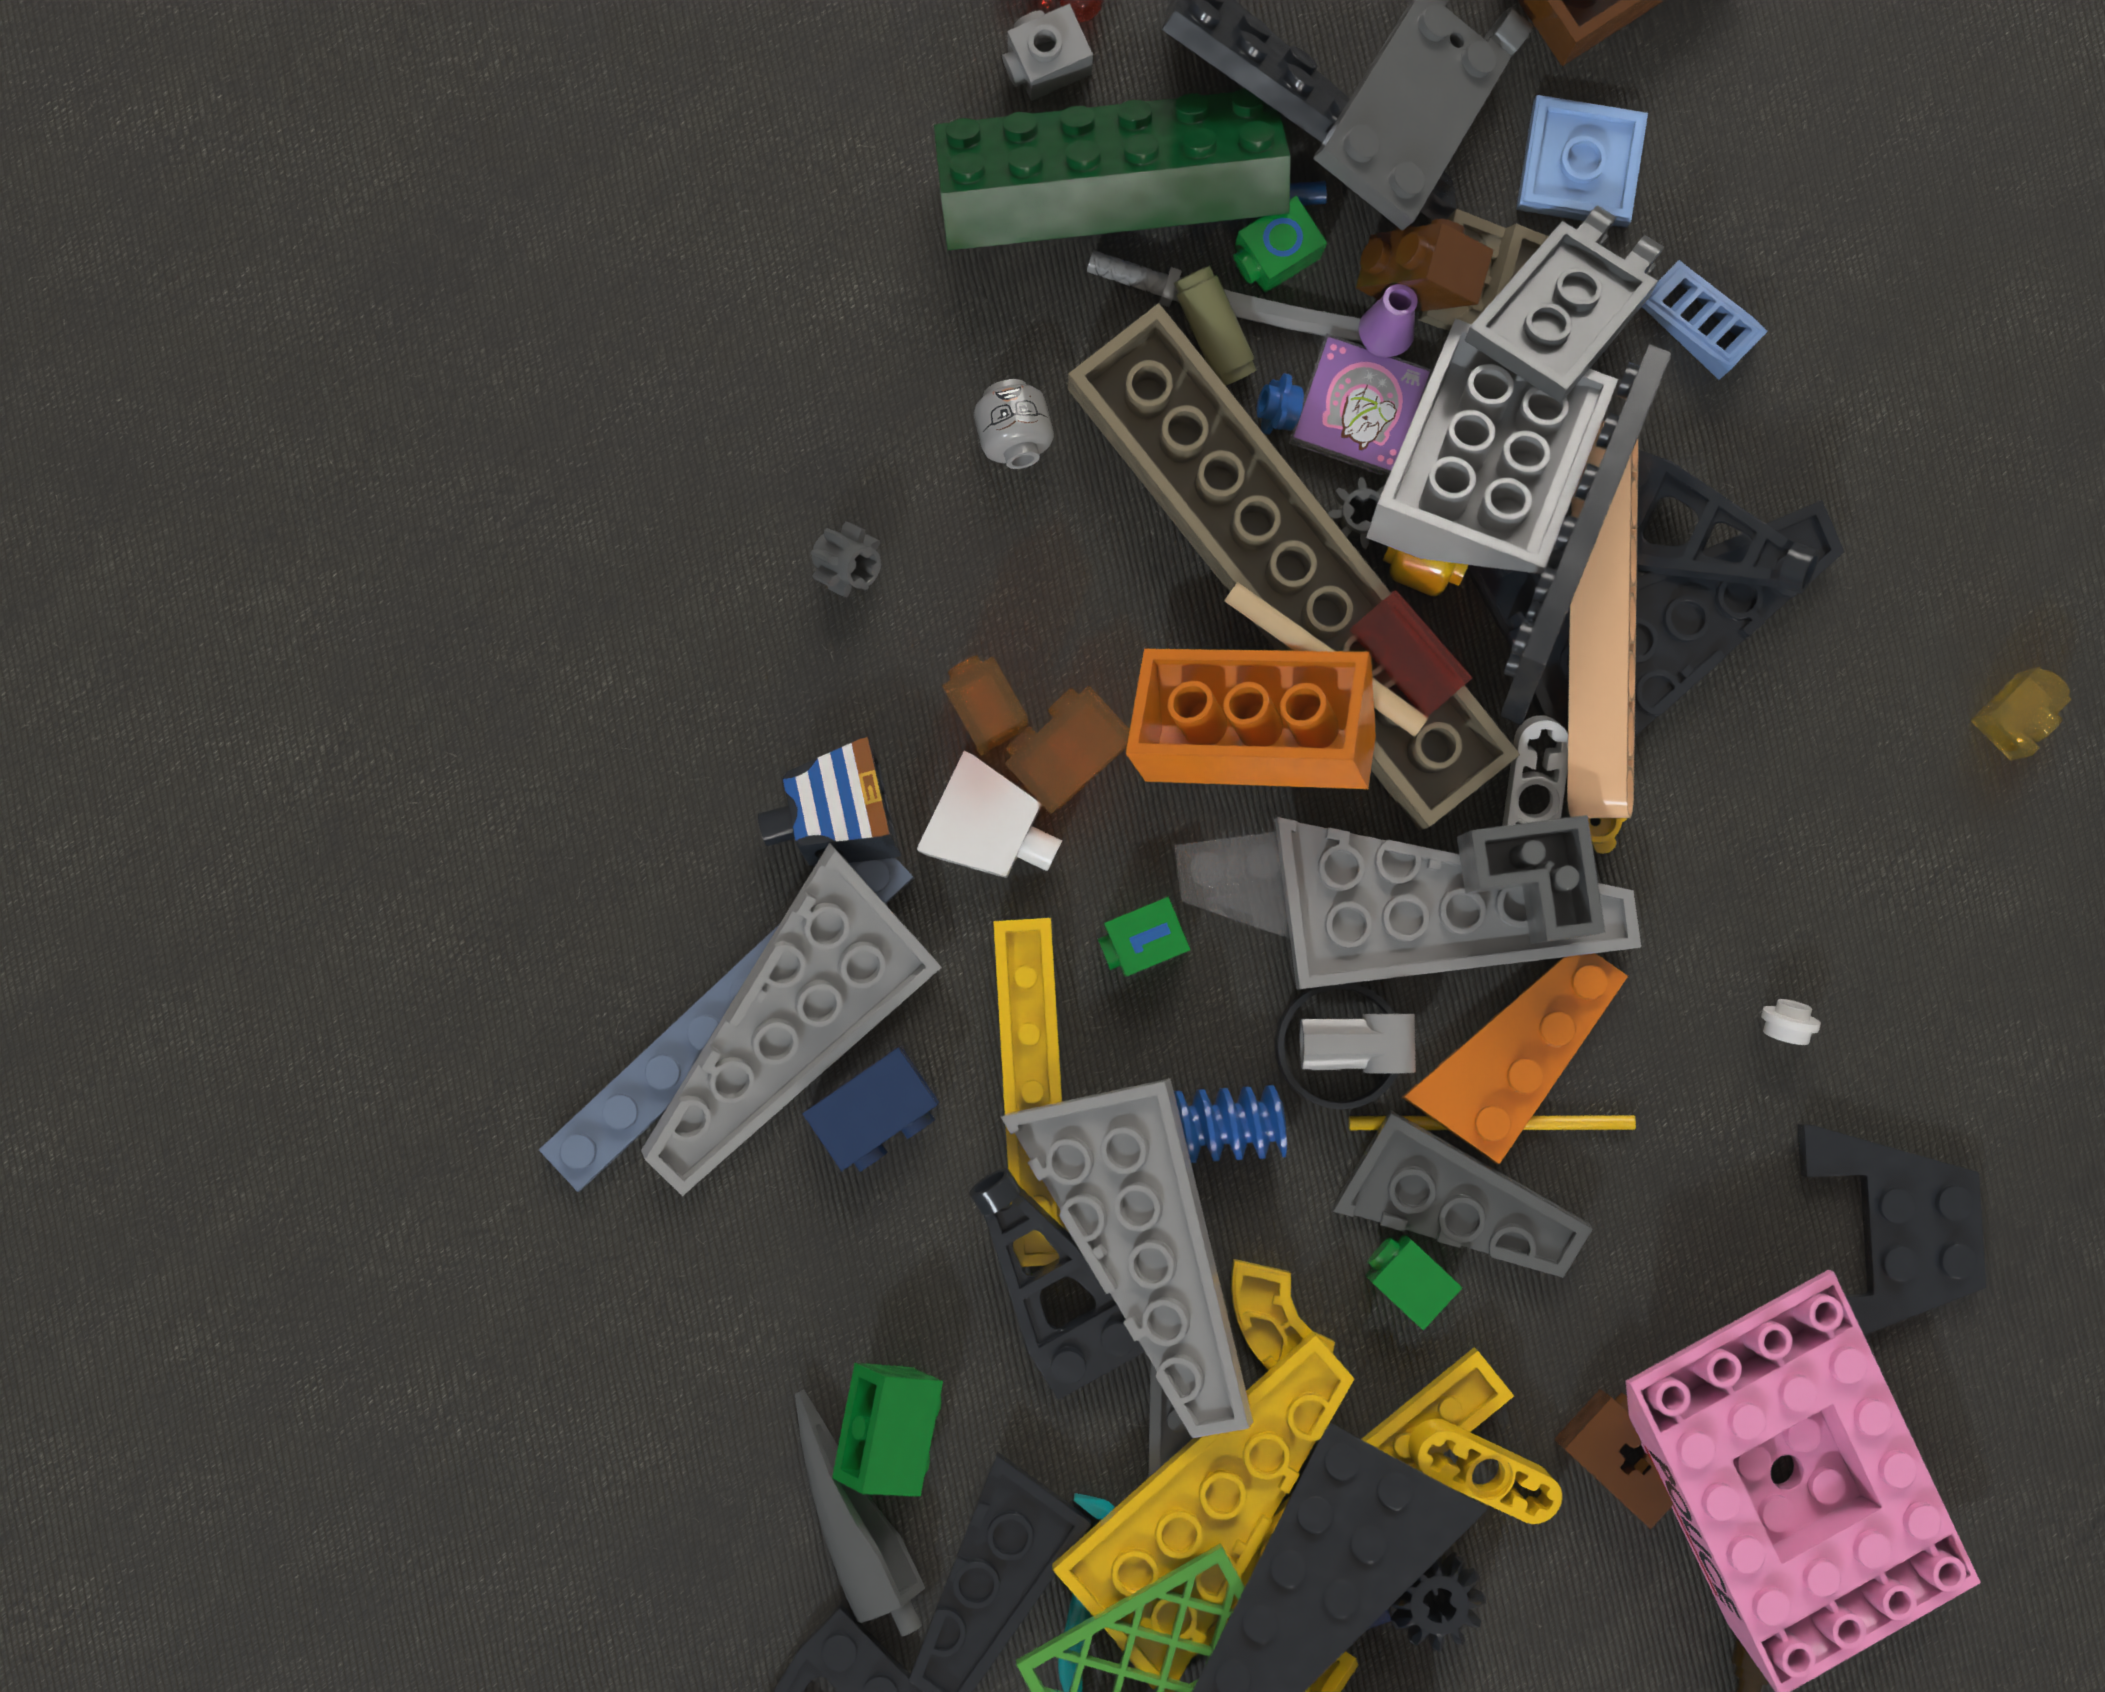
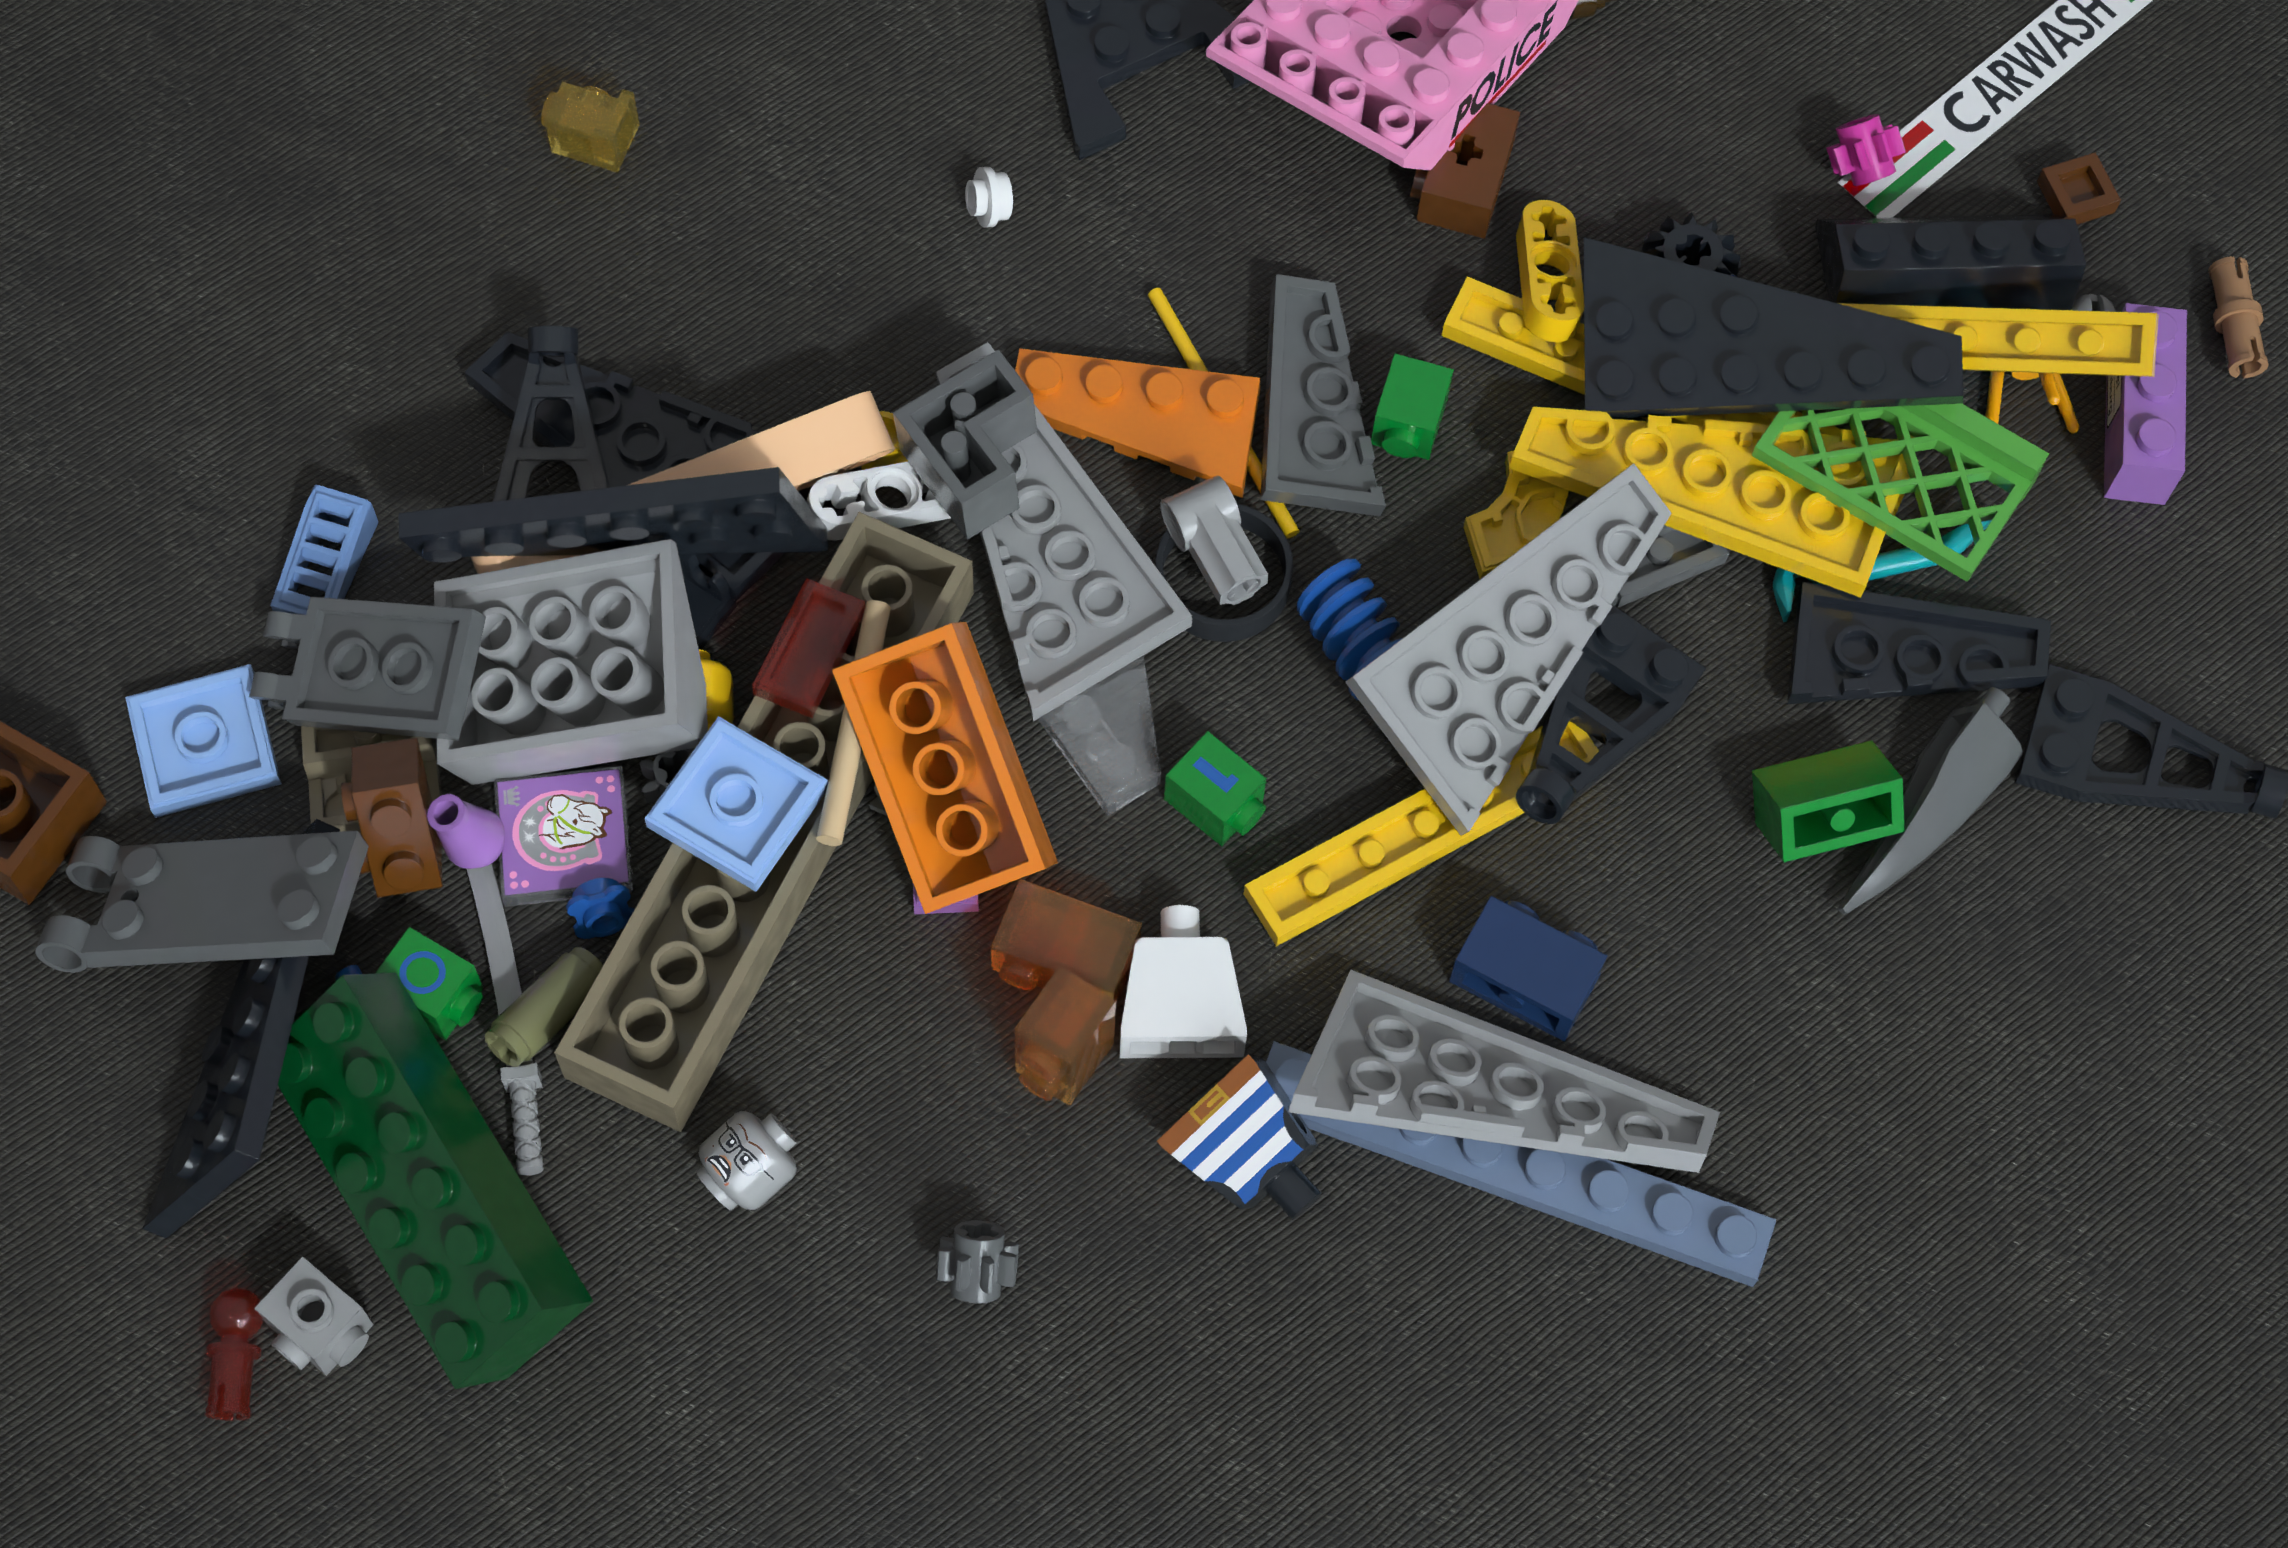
camera: 115 degrees left, 20 degrees down
(1299, 533) = (736, 803): none -> light blue tile

